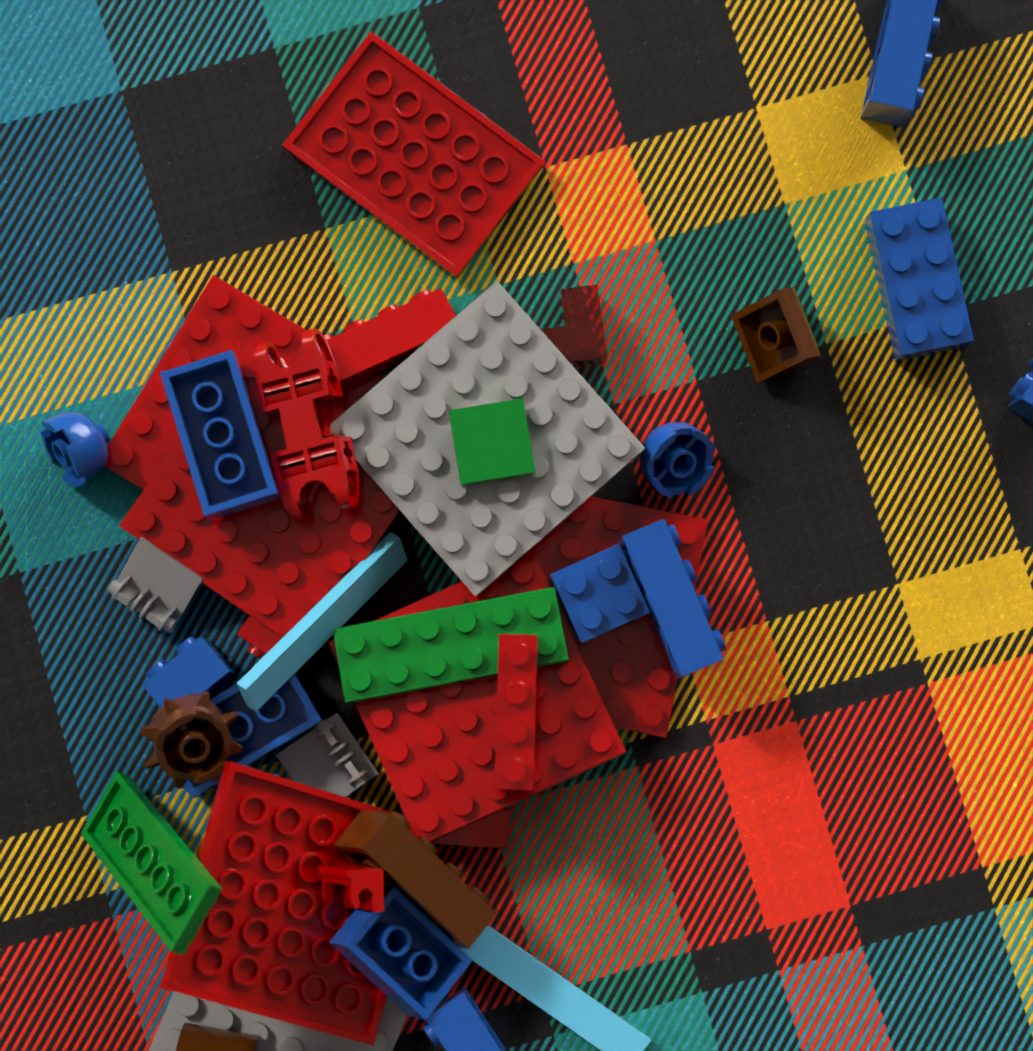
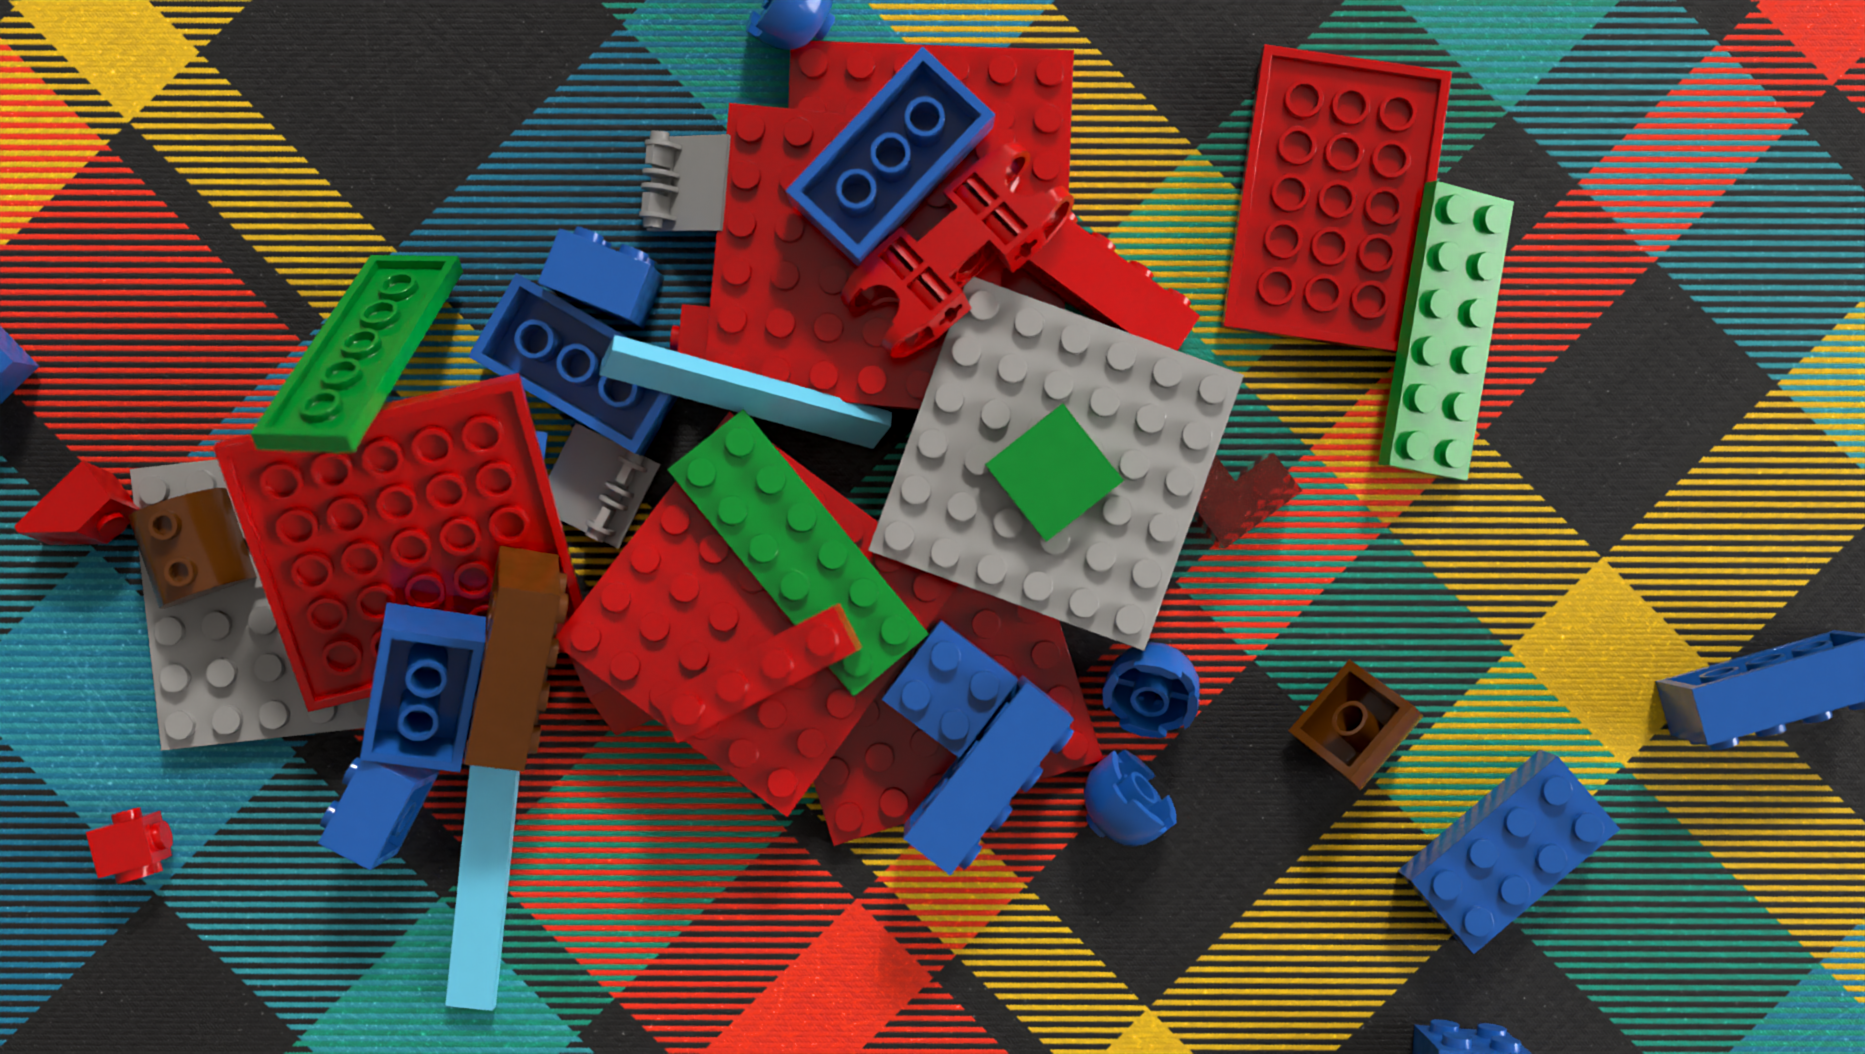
camera: 65 degrees right, 5 degrees up
(189, 719) = (525, 318): reddish brown brick -> none
(361, 886) = (467, 600): red hinge -> none
(544, 130) = (1446, 331): none -> plate
(744, 520) = (1124, 802): none -> blue cylinder

